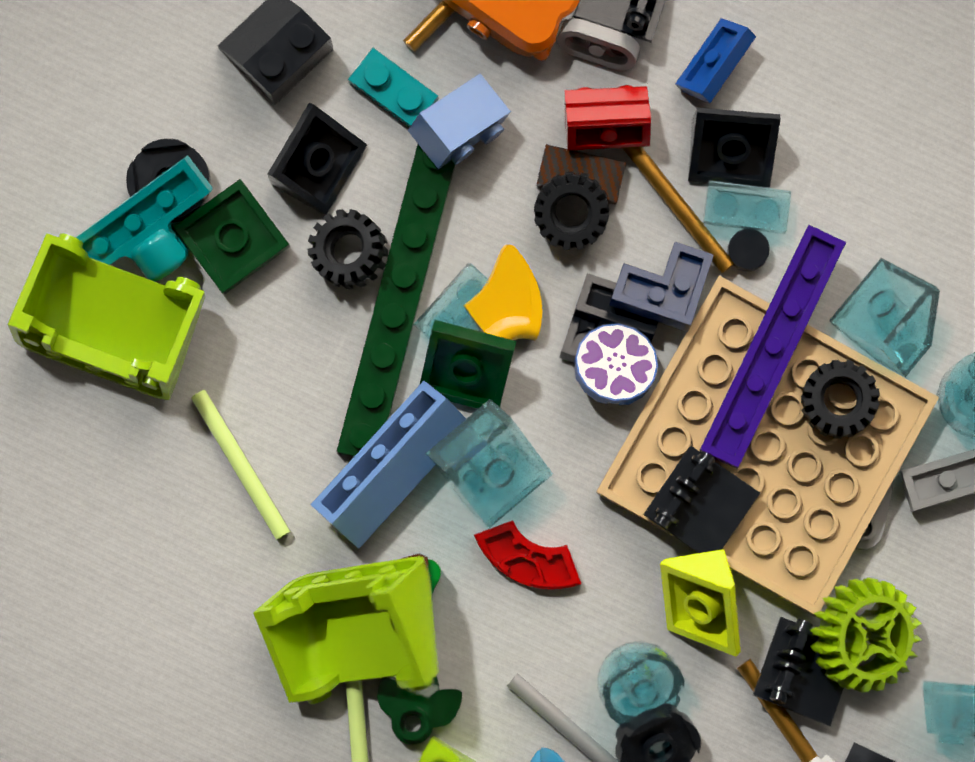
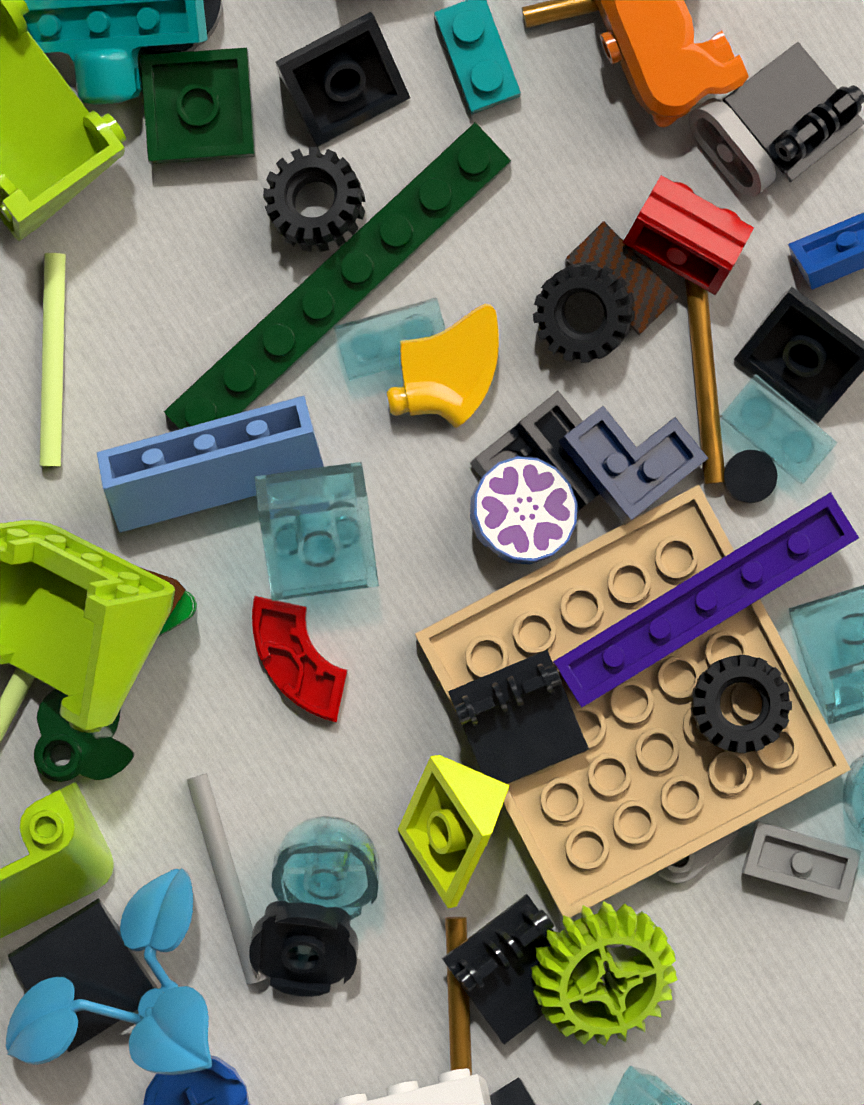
camera: 30 degrees right, 5 degrees up
(459, 122) = (524, 137): brick -> none
(467, 364) = (361, 408): dark green plate -> none

